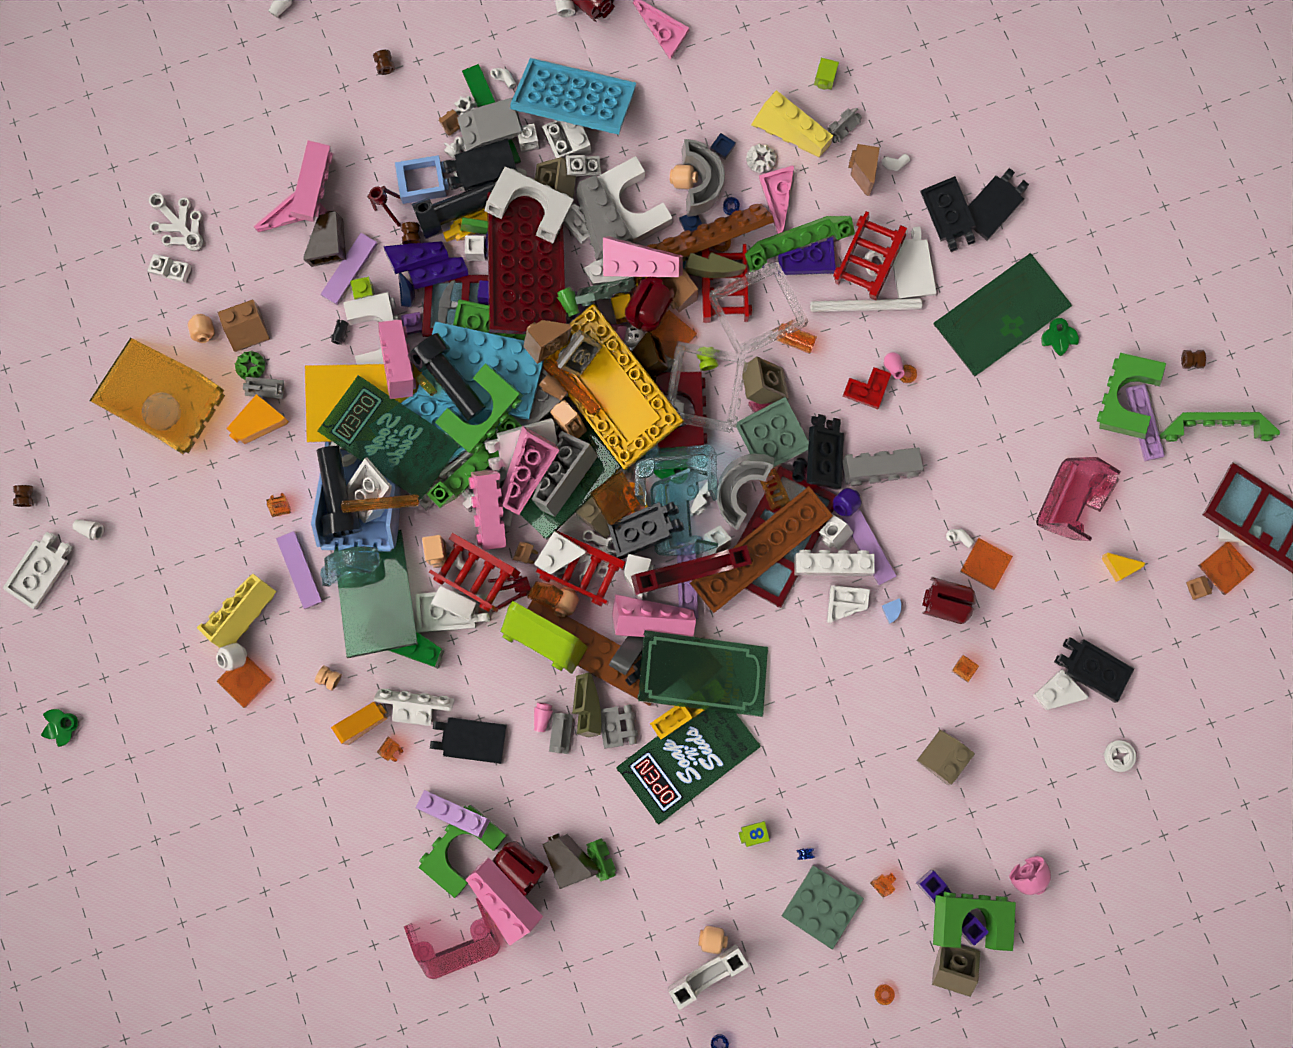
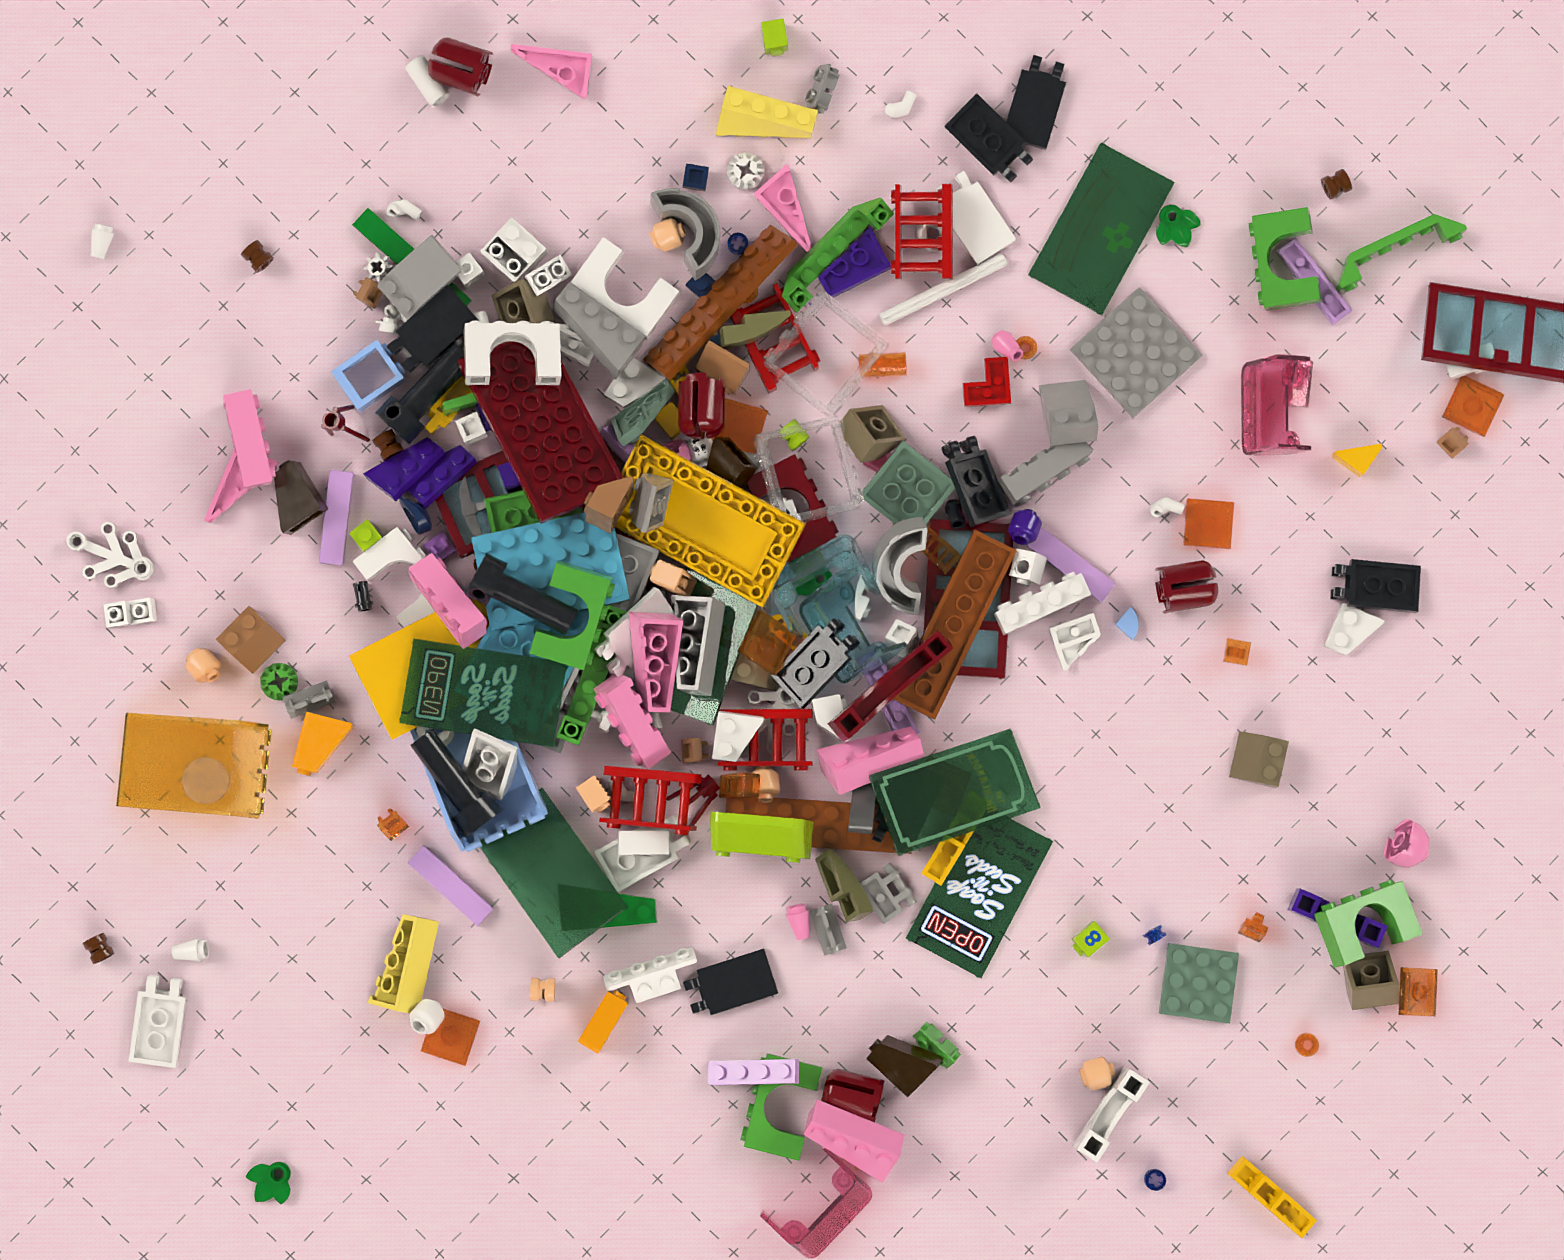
camera: 30 degrees left, 5 degrees up
(349, 561) = (504, 852): clear light blue arch -> none
(380, 503) = (513, 772): clear orange axle -> none
(388, 749) = (648, 1034): clear orange tile -> none
(426, 385) = (500, 616): clear yellow tile -> none
(553, 387) = (640, 551): medium nougat cone -> none
(568, 301) = (610, 445): bright green cone -> none
(571, 386) = (661, 541): clear orange axle -> none
(573, 96) = (499, 199): medium azure plate -> none
(636, 260) = (669, 363): bright pink wedge -> none
(863, 166) = (869, 130): medium nougat slope -> none
(918, 434) = (1069, 412): none -> light grey slope
(988, 414) = (1136, 352): none -> light grey plate
(989, 994) = (1418, 991): none -> clear orange tile
(1128, 759) = (1457, 669): white gear -> none

